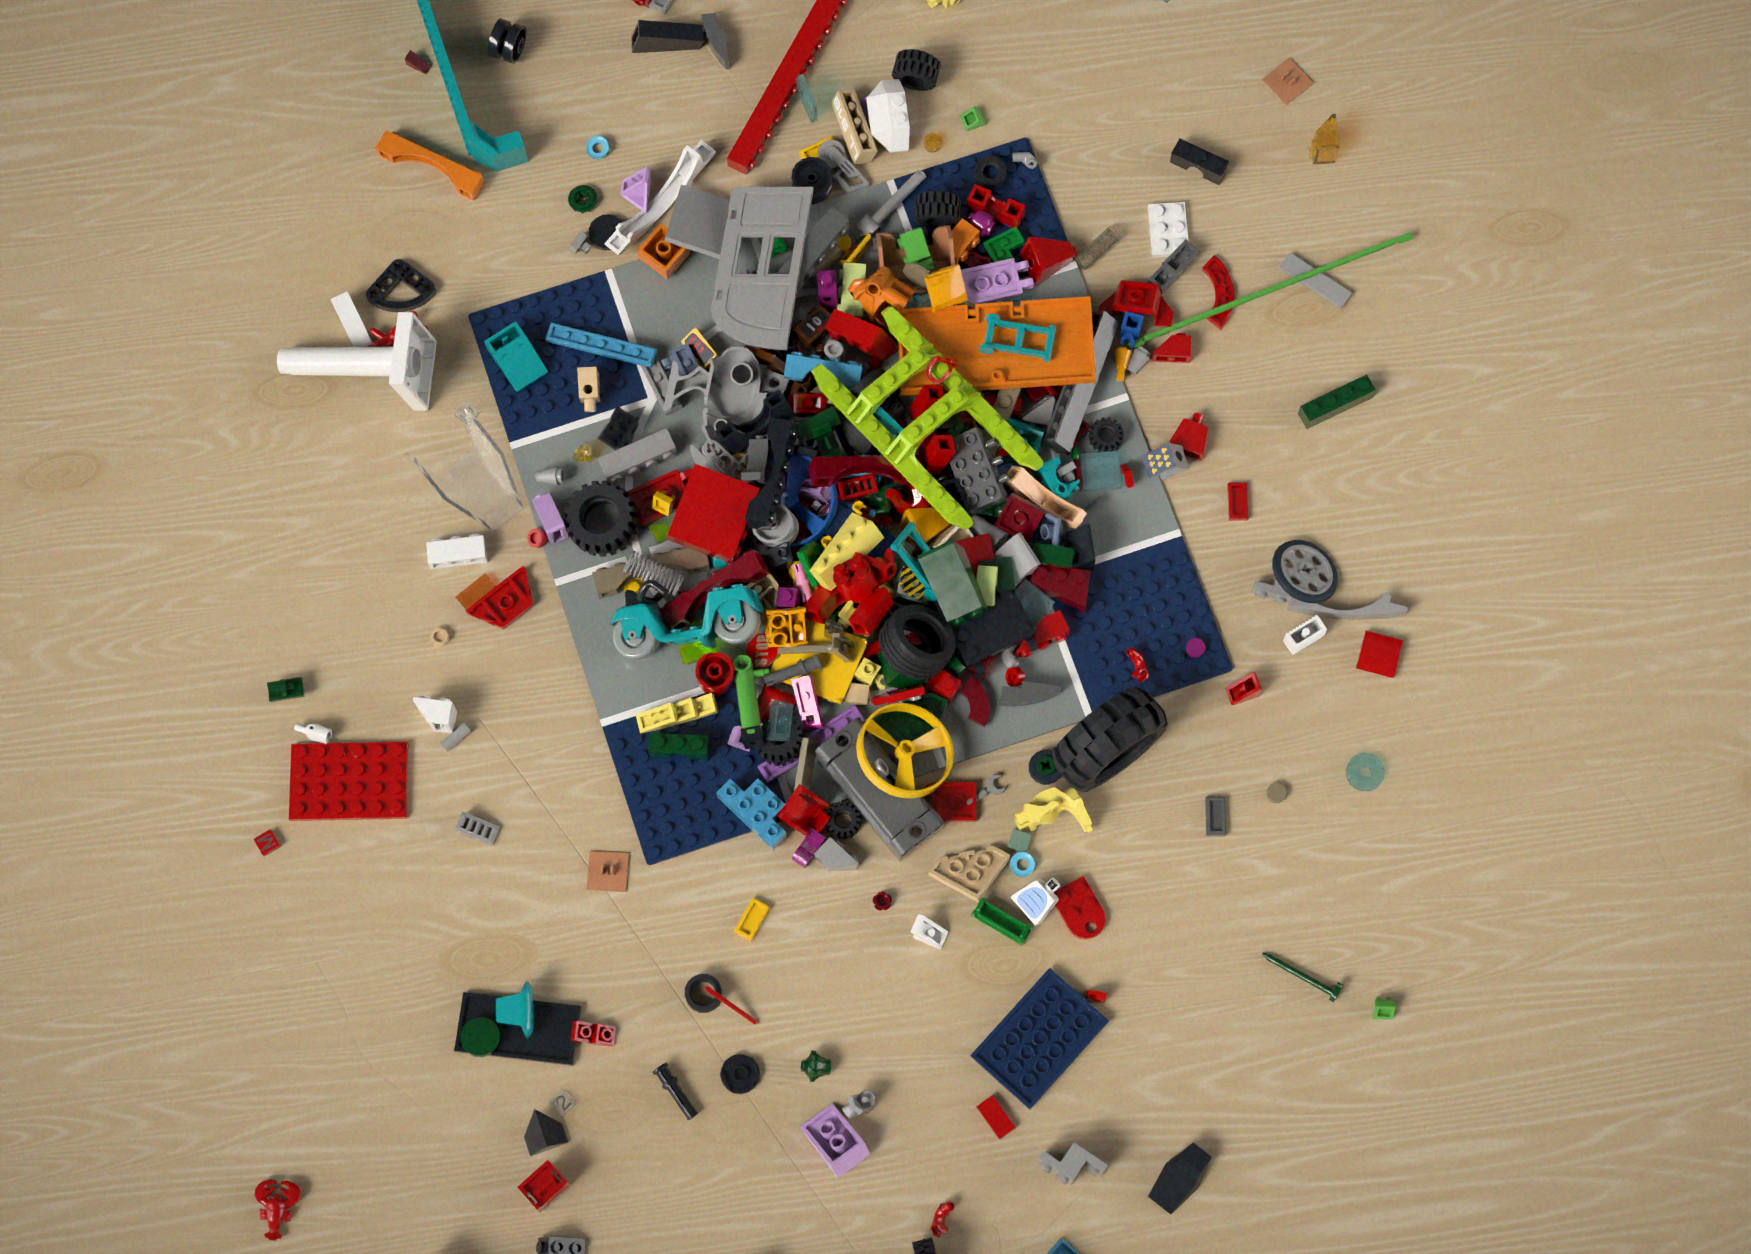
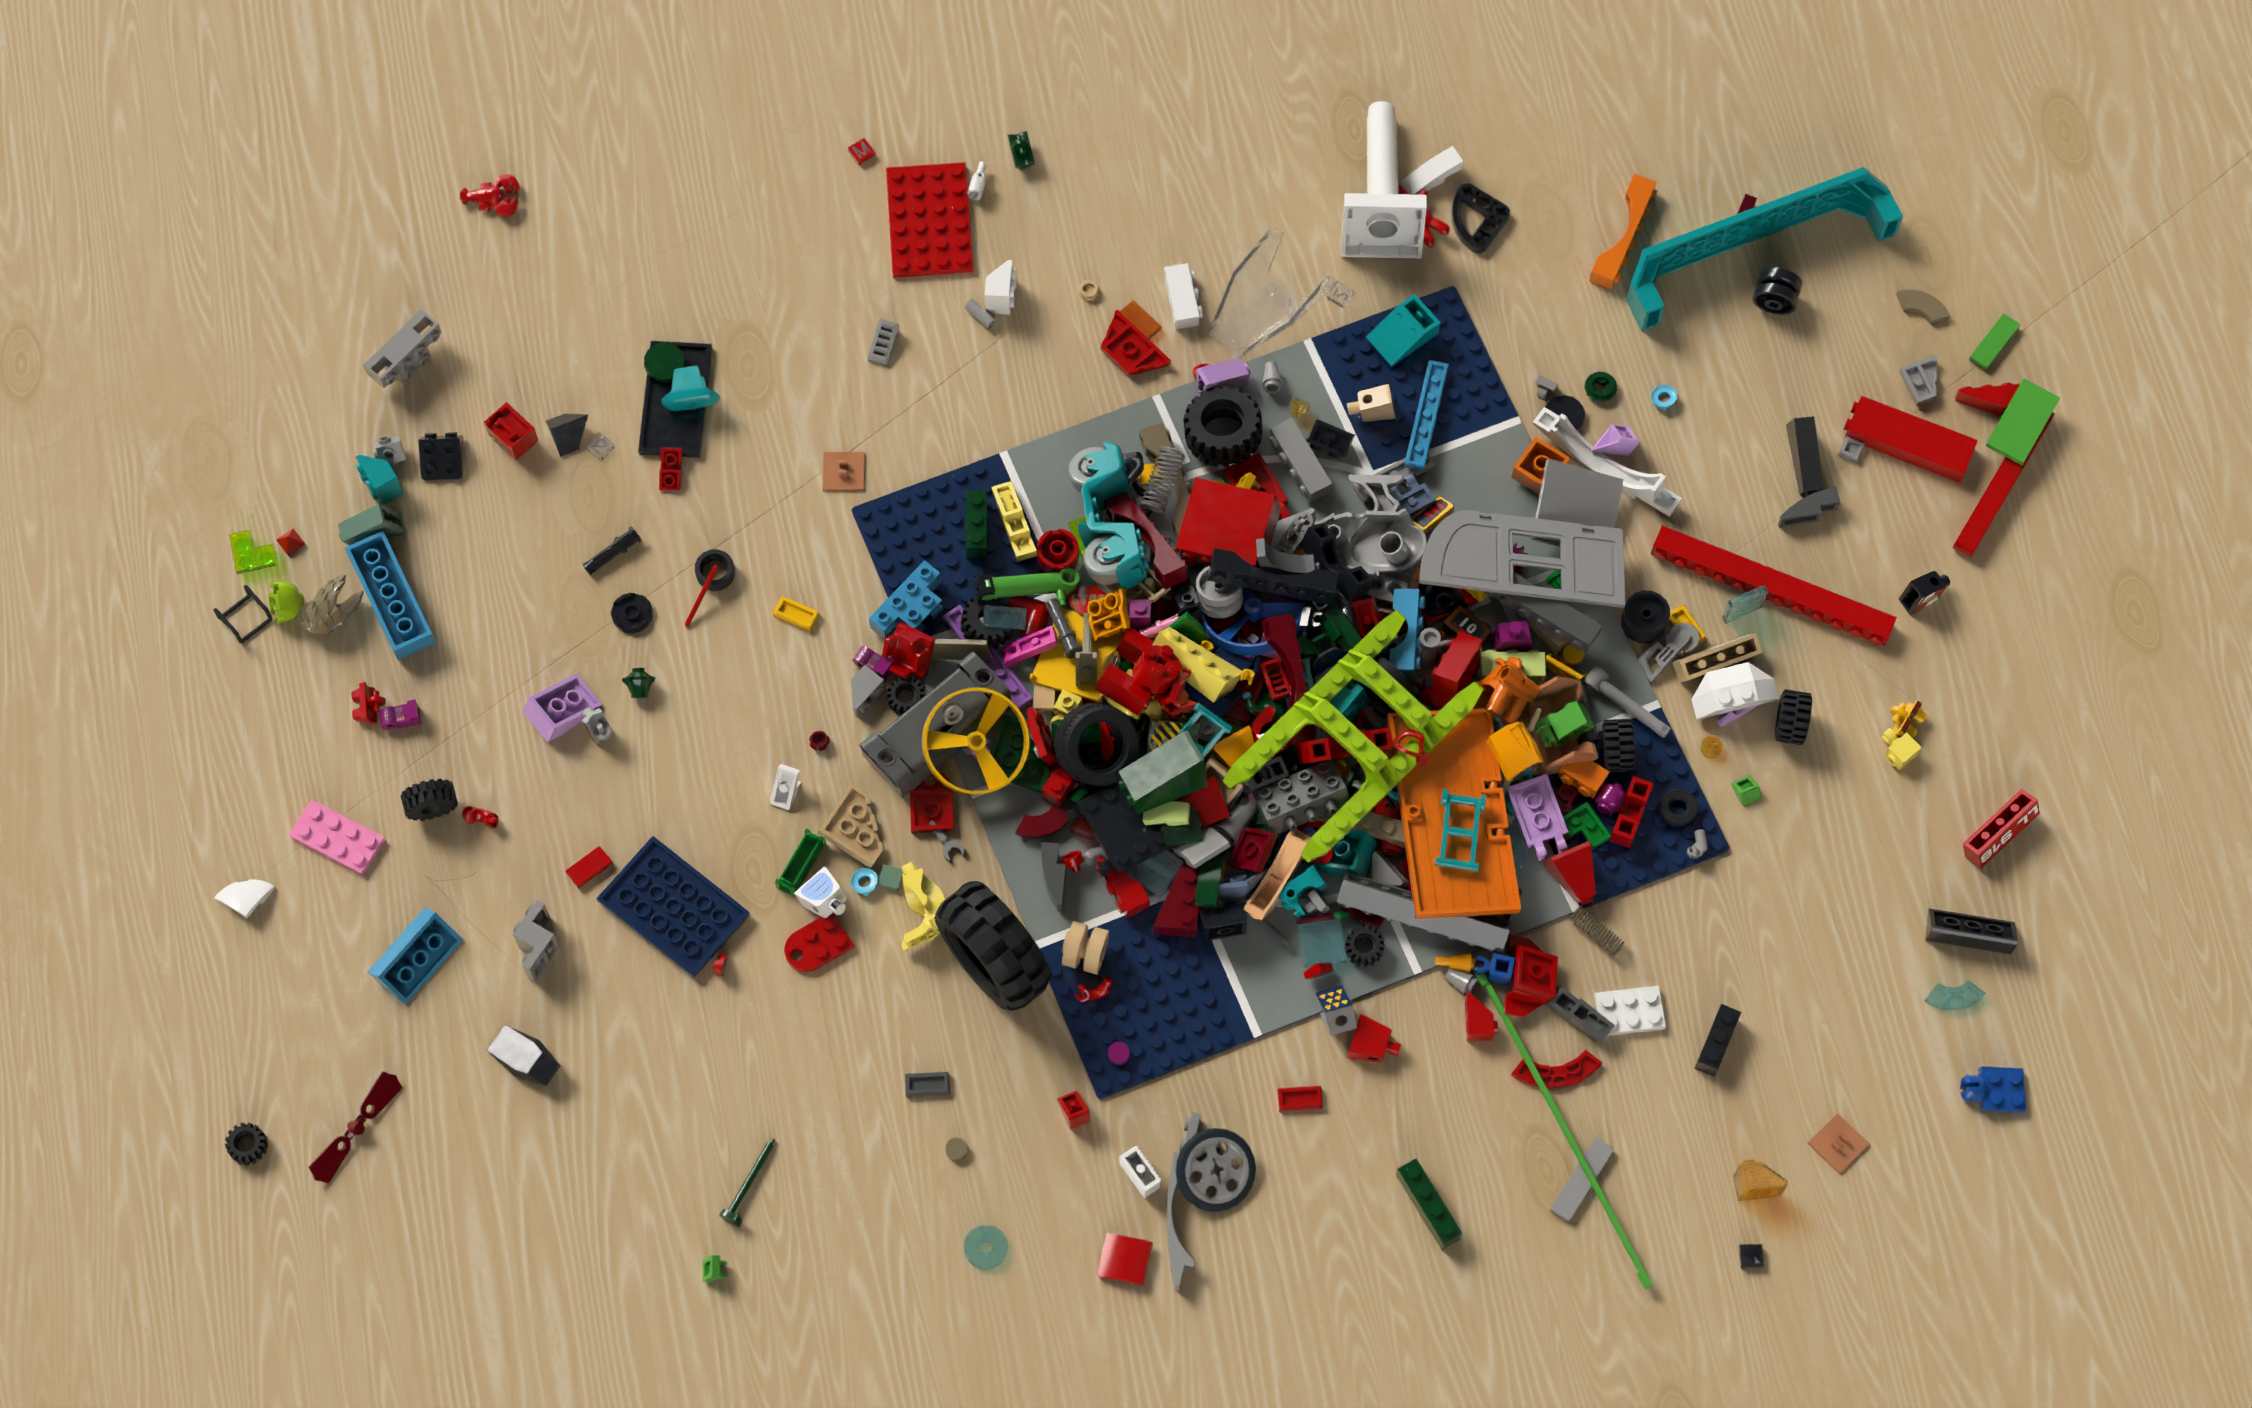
camera: 85 degrees right, 5 degrees down
(1102, 667) = (1079, 946): none -> tan wheel
(1383, 156) = (1751, 1255): none -> black tile

